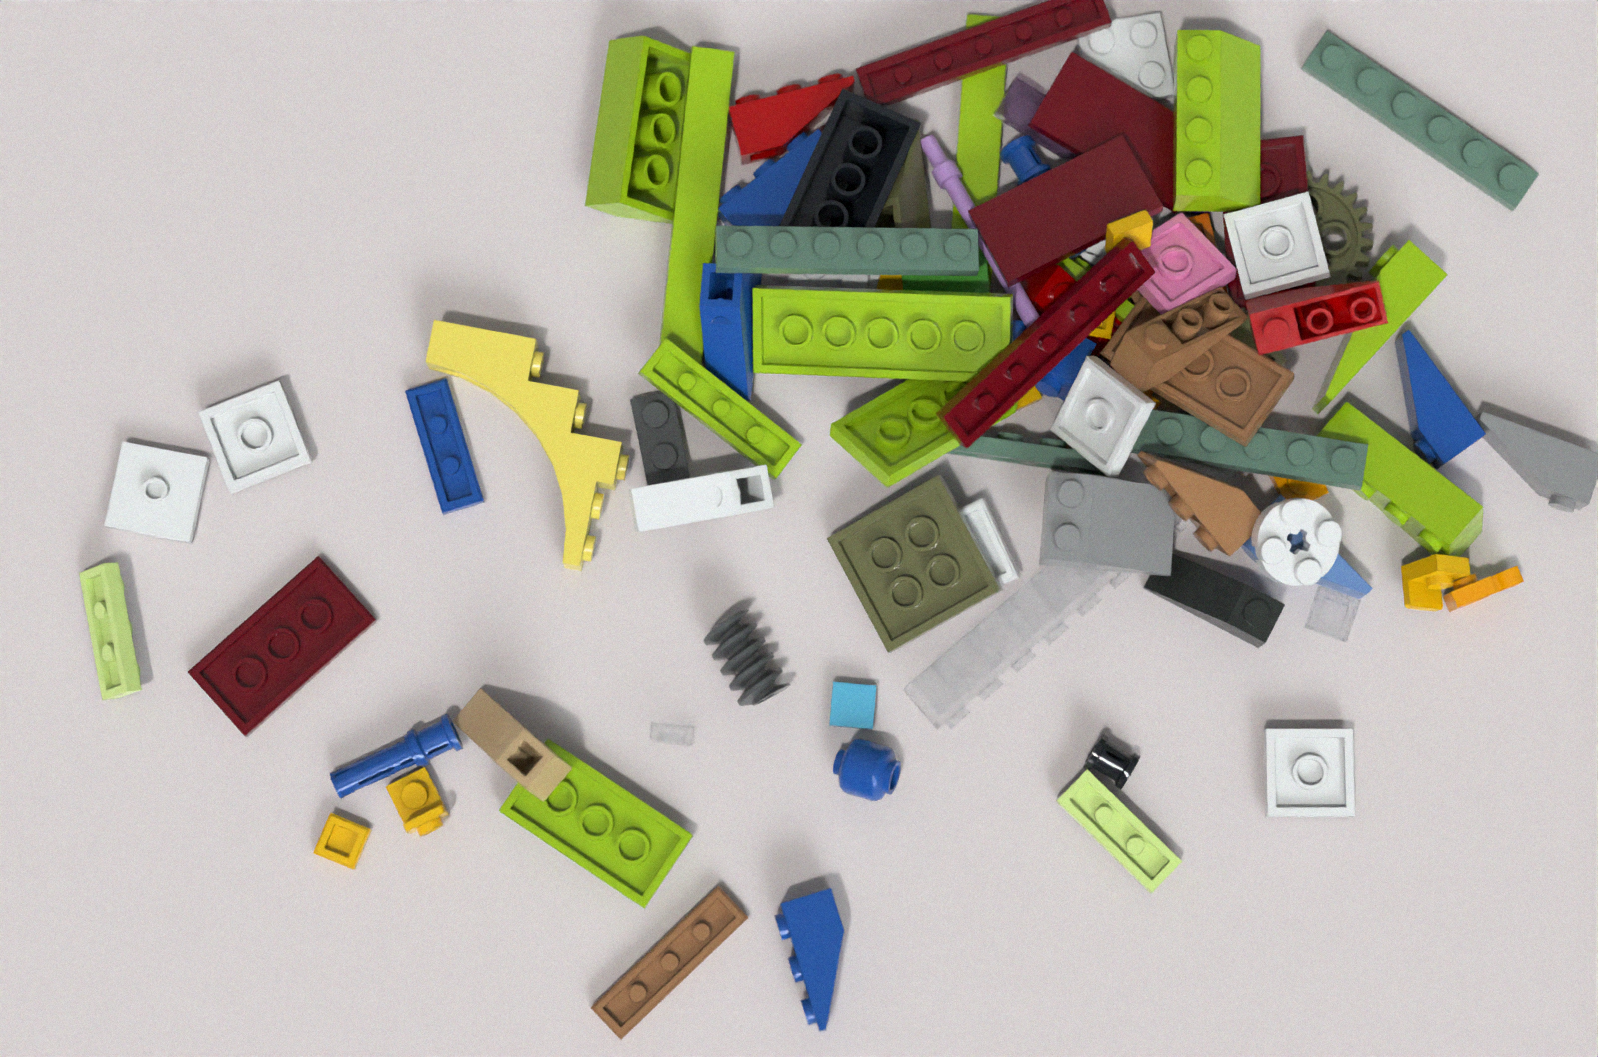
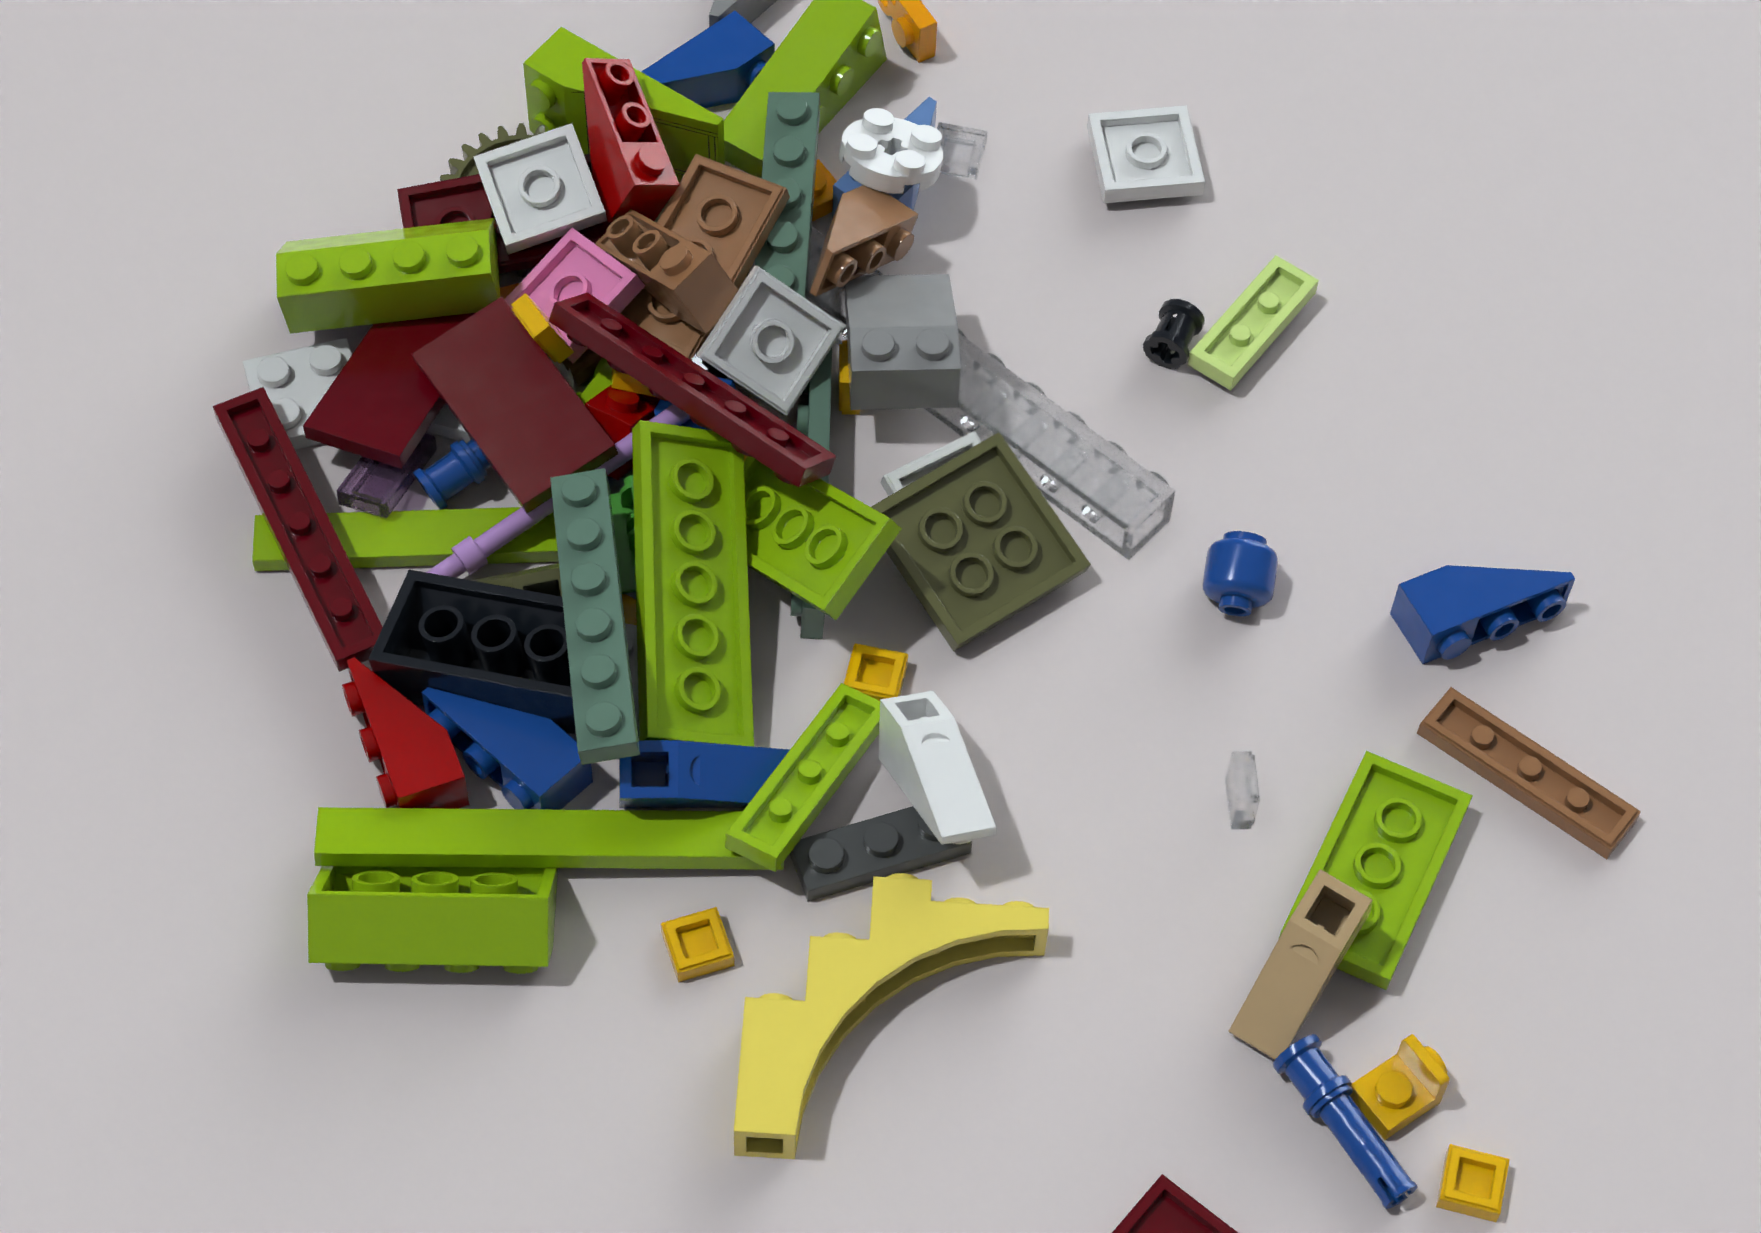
camera: 95 degrees left, 25 degrees down
(444, 446) = (903, 1120): blue tile -> none
(601, 317) = (697, 944): none -> yellow tile
(744, 660) = (1130, 713): dark grey piece -> none
(813, 474) = (876, 671): none -> yellow tile
(852, 705) = (1161, 605): medium azure tile -> none
(1218, 600) = (970, 234): pearl dark grey slope -> none
(1420, 121) = (362, 115): sand green plate -> none
(1426, 577) = (901, 45): yellow bracket -> none

